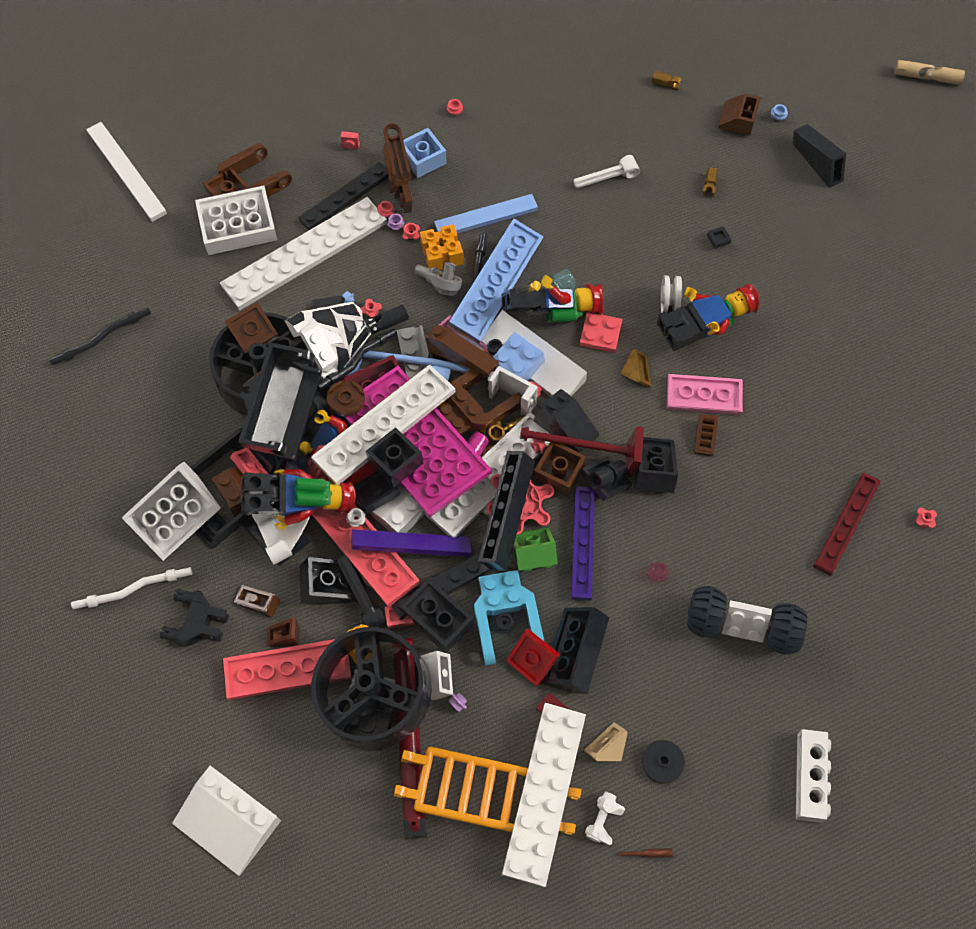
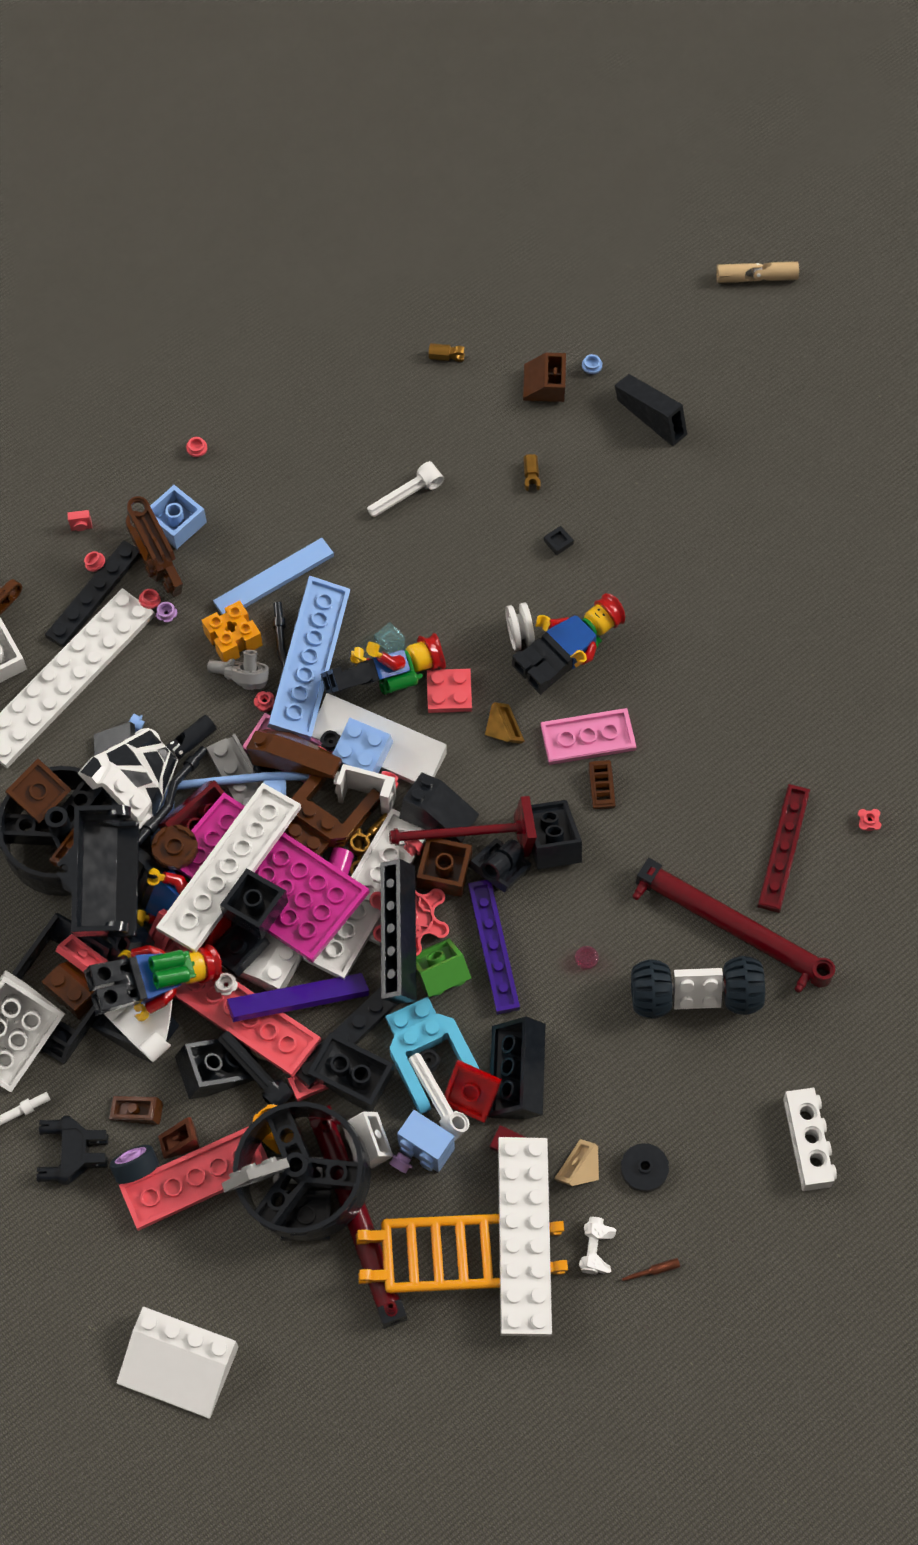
camera: 15 degrees left, 0 degrees up
(239, 644) = (134, 1164): none -> black wheel
(328, 679) = (254, 1173): none -> light grey plate
(352, 172) = (94, 561): none -> coral plate
(371, 313) = (167, 733): coral plate -> none
(411, 227) = (184, 616): coral plate -> none
(451, 309) = (264, 706): none -> coral plate
(482, 689) = (425, 1141): none -> light blue brick
(509, 680) = (453, 1122): none -> white axle
(791, 575) = (655, 878): none -> dark red piece

